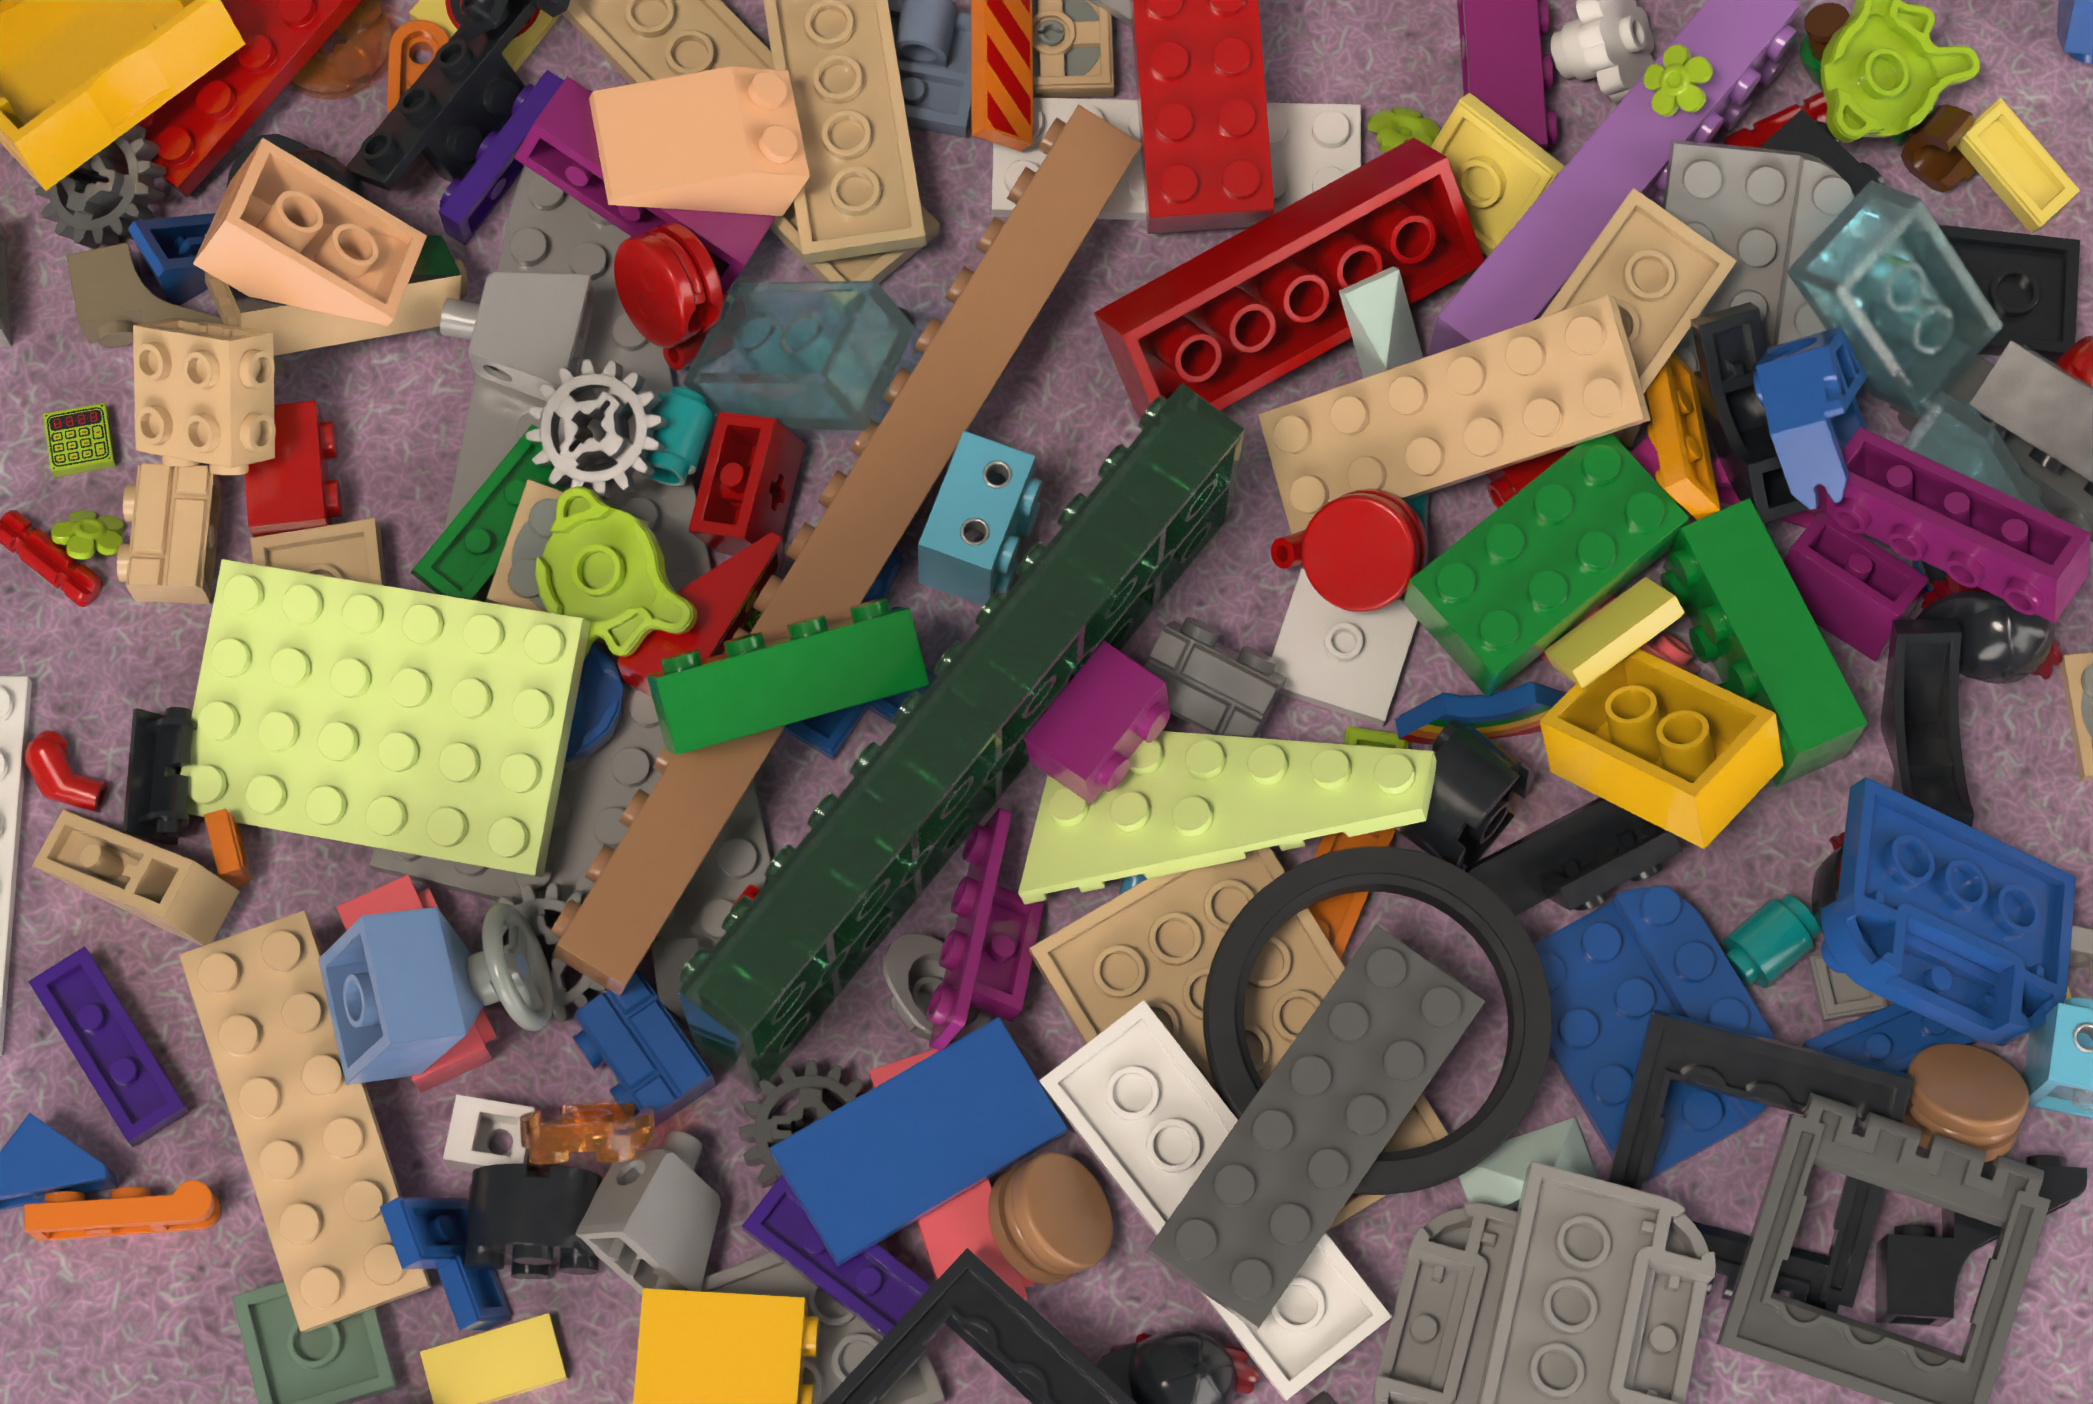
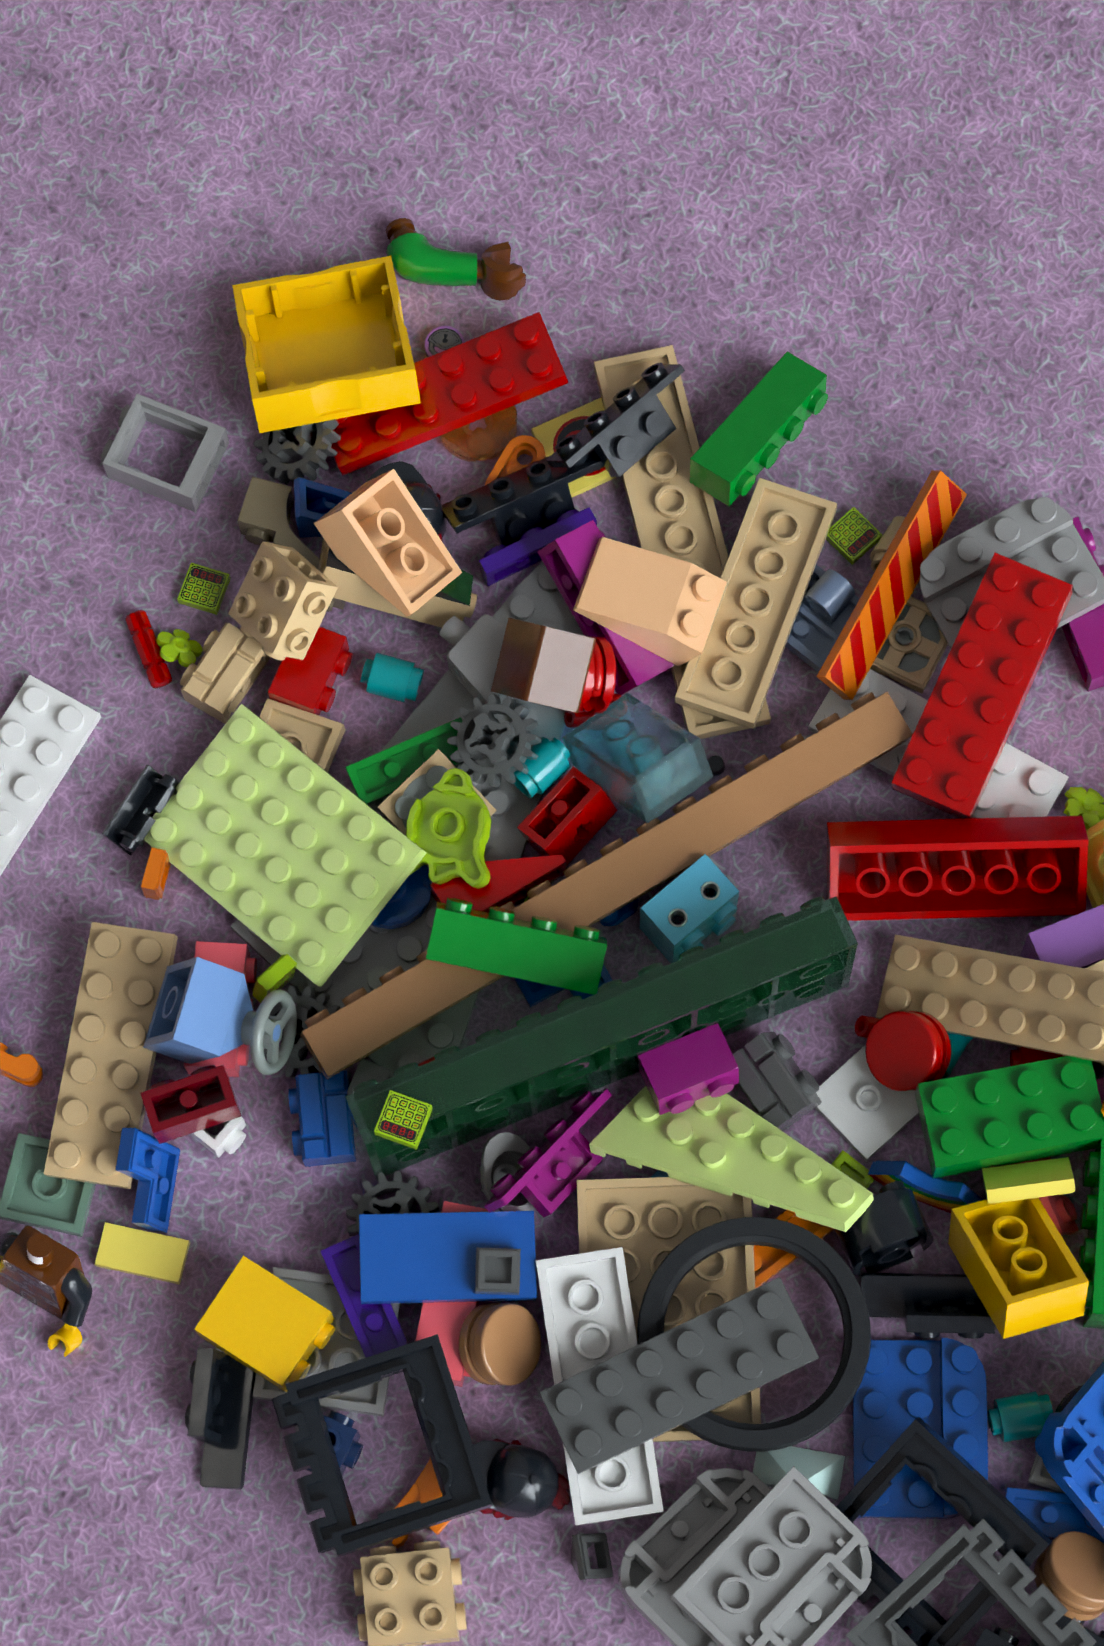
camera: 35 degrees right, 0 degrees up
(54, 777) = (83, 779): red arm -> none
(108, 1046) = (29, 952): dark purple plate -> none
(137, 877) = (96, 863): tan slope -> none
(405, 426) = (392, 677): none -> teal brick
(456, 1123) = (190, 1103): none -> dark red brick
(473, 898) = (274, 977): none -> lime tile
(529, 1220) = (207, 1183): black brick -> none
(587, 1127) = (267, 1147): clear orange plate -> none
(610, 293) = (543, 665): none -> piece
(655, 1217) = (275, 1218): light grey torso -> none
(776, 978) = (403, 1119): none -> tile
(998, 1121) = (497, 1271): none -> dark grey tile
(1381, 322) = (999, 919): light aqua slope -> none

